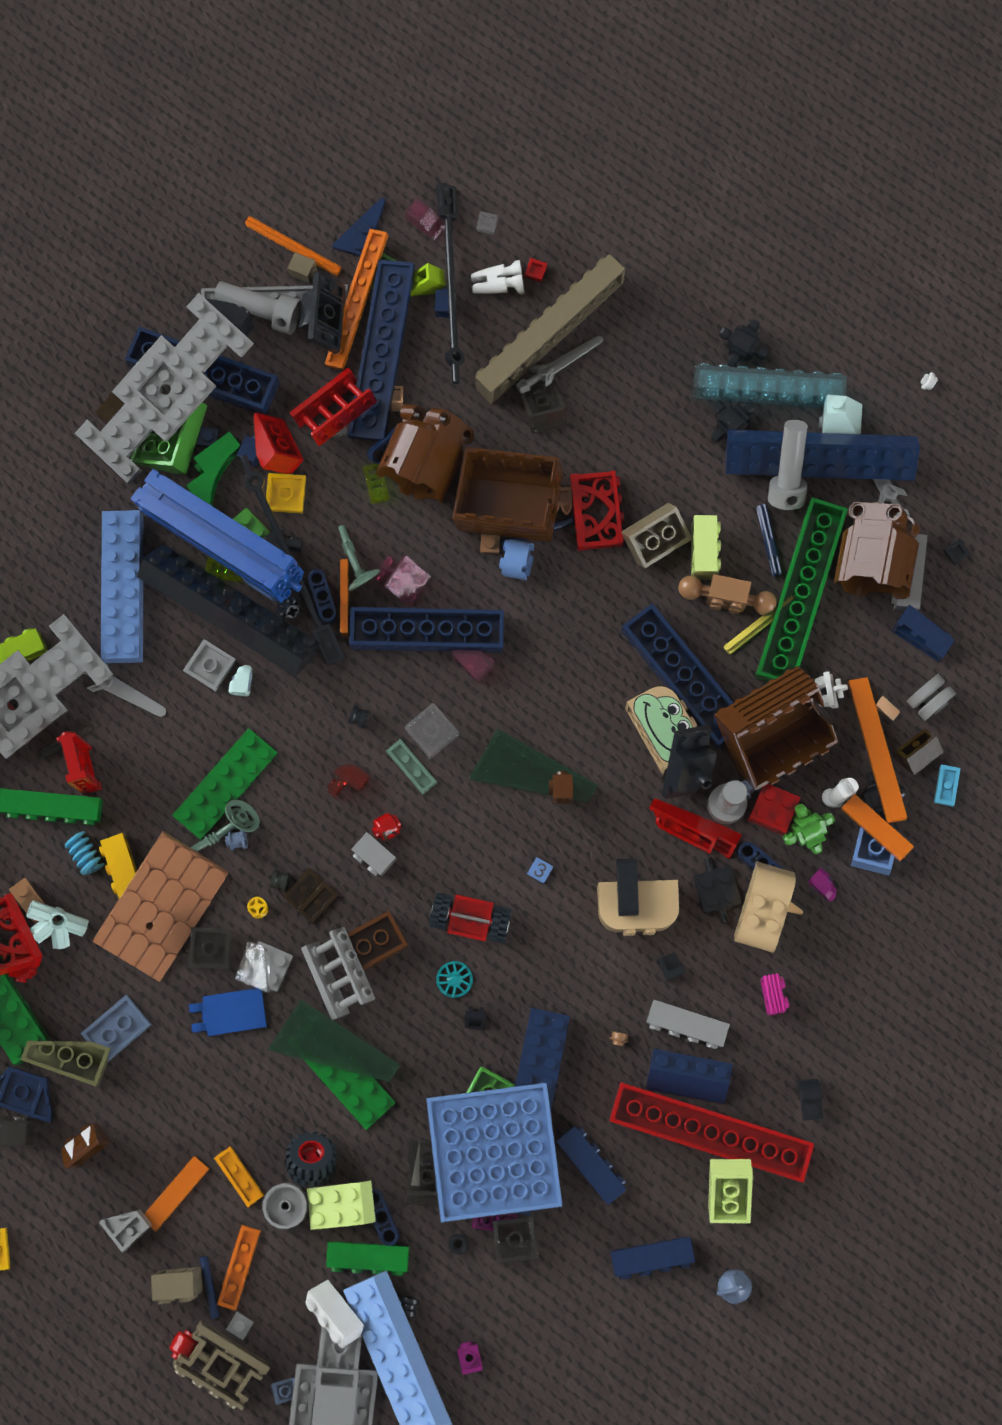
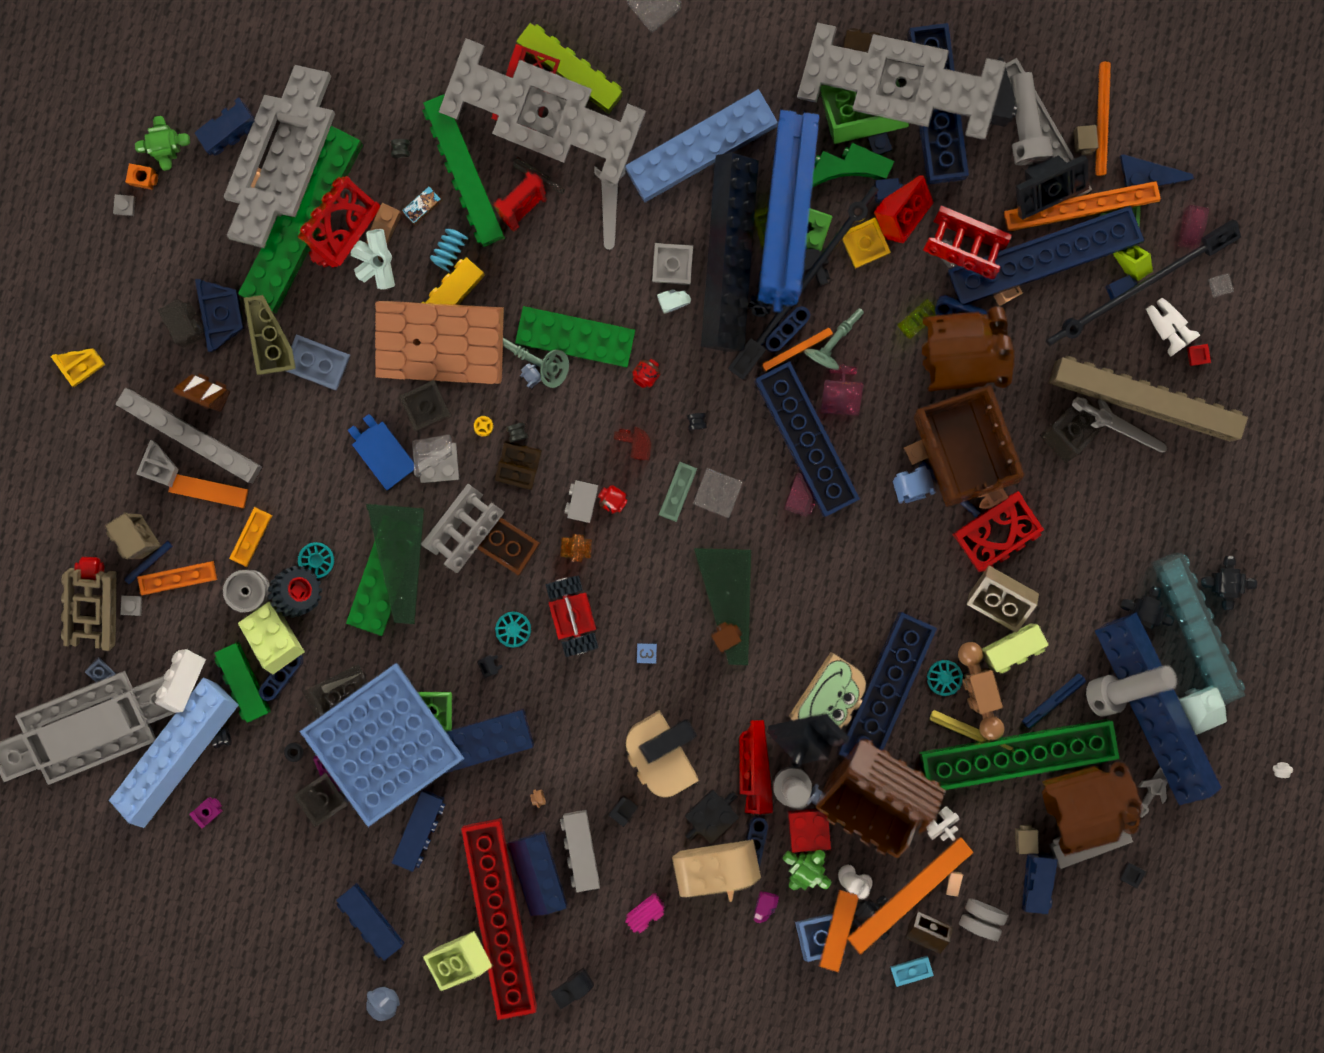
camera: 55 degrees right, 10 degrees up
(31, 857) = (421, 205): none -> tile
(114, 1183) = (188, 435): none -> light grey brick
(292, 738) = (646, 373): none -> red head
(293, 1126) = (316, 559): none -> teal wheel
(411, 881) = (576, 547): none -> clear orange brick
(699, 622) = (944, 678): none -> teal wheel
(879, 625) = (1026, 839): none -> dark tan brick

